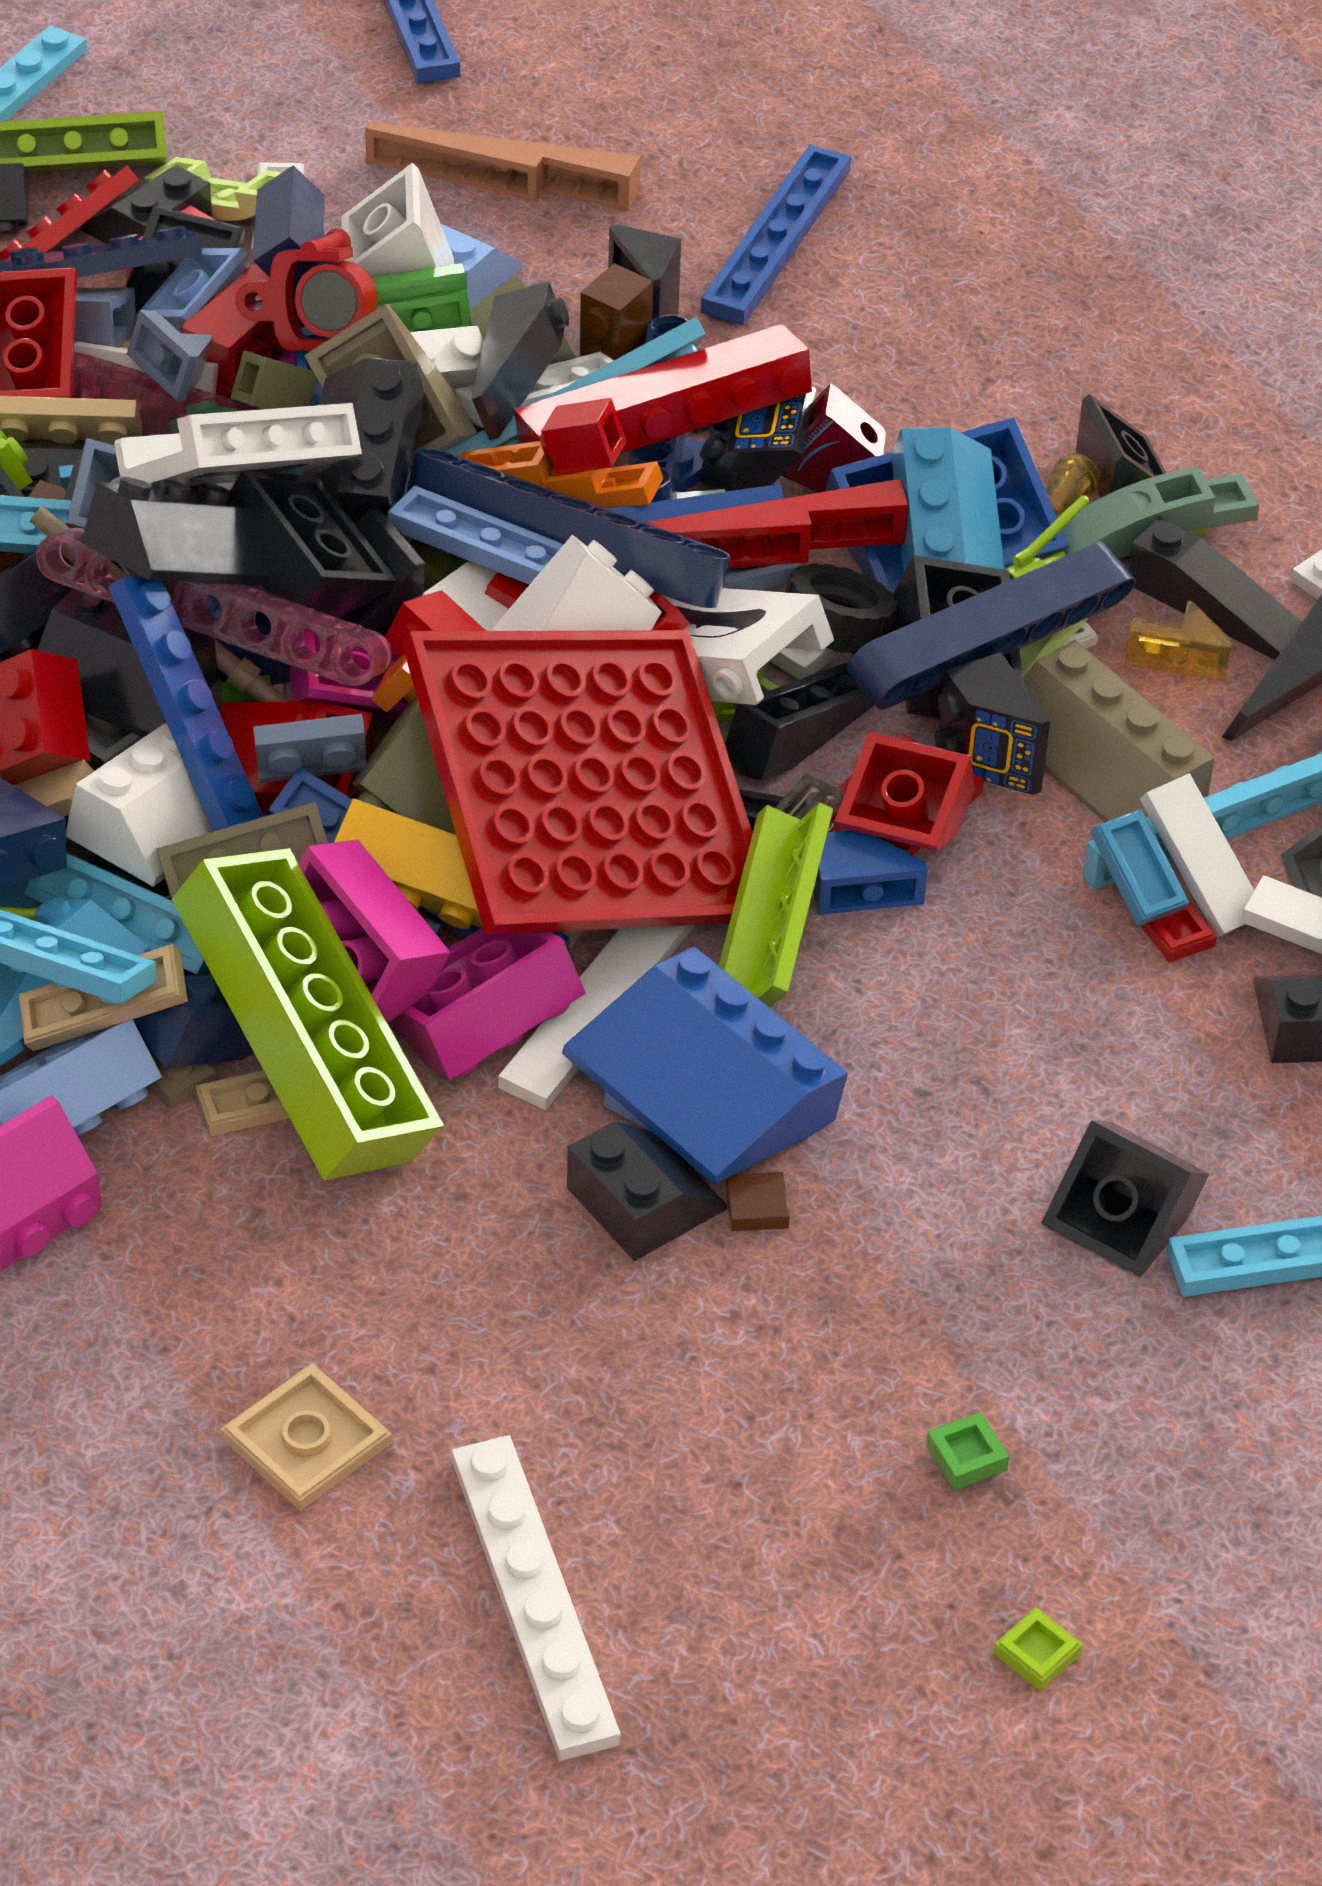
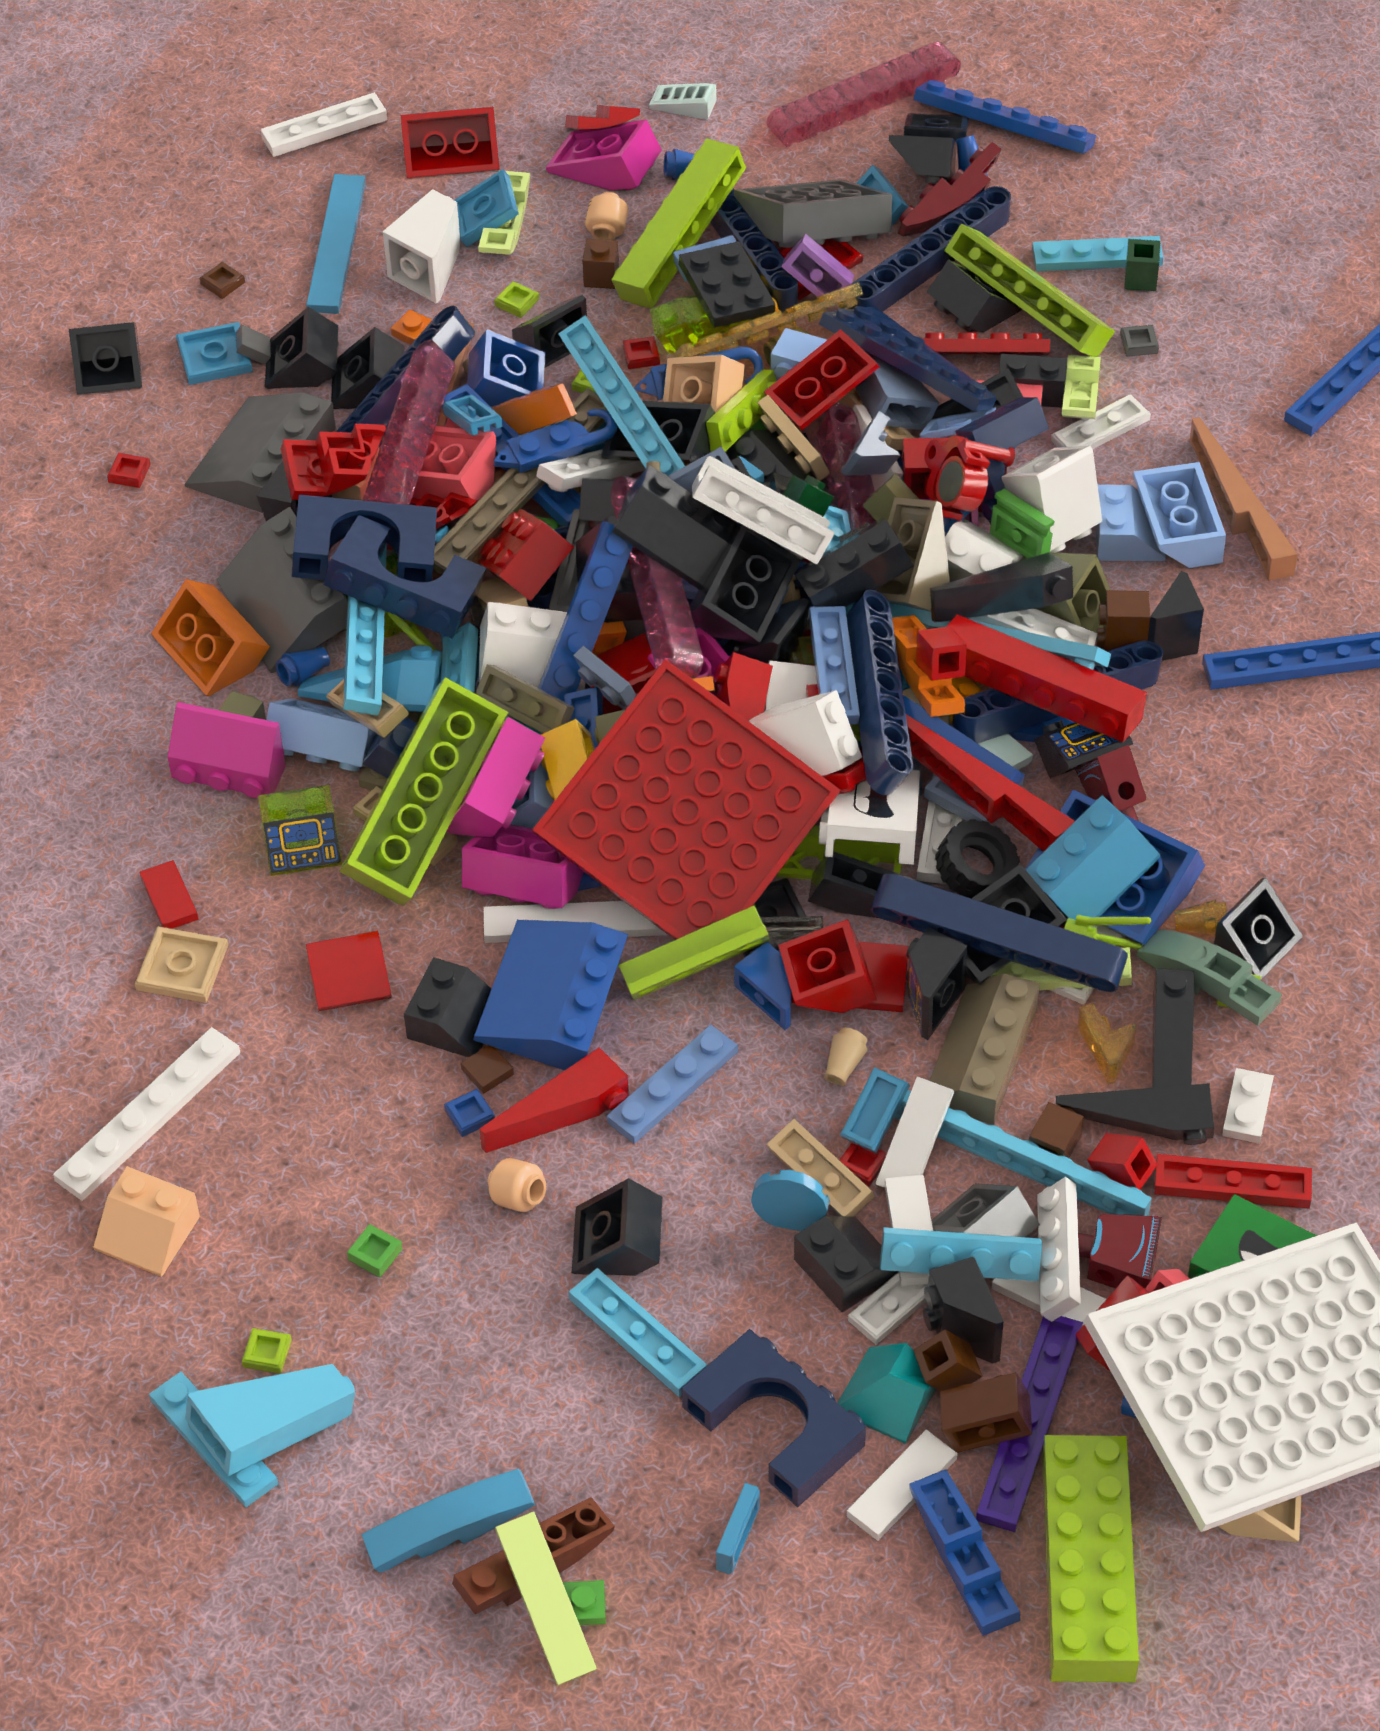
camera: 60 degrees right, 5 degrees up
(90, 50) = (1142, 265): none -> dark green brick
(172, 1393) = (168, 895): none -> red tile
(186, 119) = (1139, 340): none -> dark grey tile
(203, 1193) = (300, 830): none -> slope
(480, 1260) = (348, 971): none -> red slope
(501, 199) = (1182, 514): none -> light blue slope
(733, 1675) = (145, 1221): none -> light nougat slope
(813, 1253) = (469, 1112): none -> blue tile
(880, 1125) = (567, 1099): none -> red slope
(927, 1040) = (672, 1084): none -> medium blue plate
(978, 1254) = (516, 1185): none -> light nougat head
(1016, 863) = (845, 1053): none -> tan cone
(1142, 1776) = (245, 1484): none -> medium azure plate
(1172, 968) = (805, 1154): none -> tan plate
(1176, 1687) = (267, 1414): none -> medium azure slope
(1217, 1006) = (789, 1199): none -> dark azure tile
(1275, 741) = (1057, 1130): none -> reddish brown brick

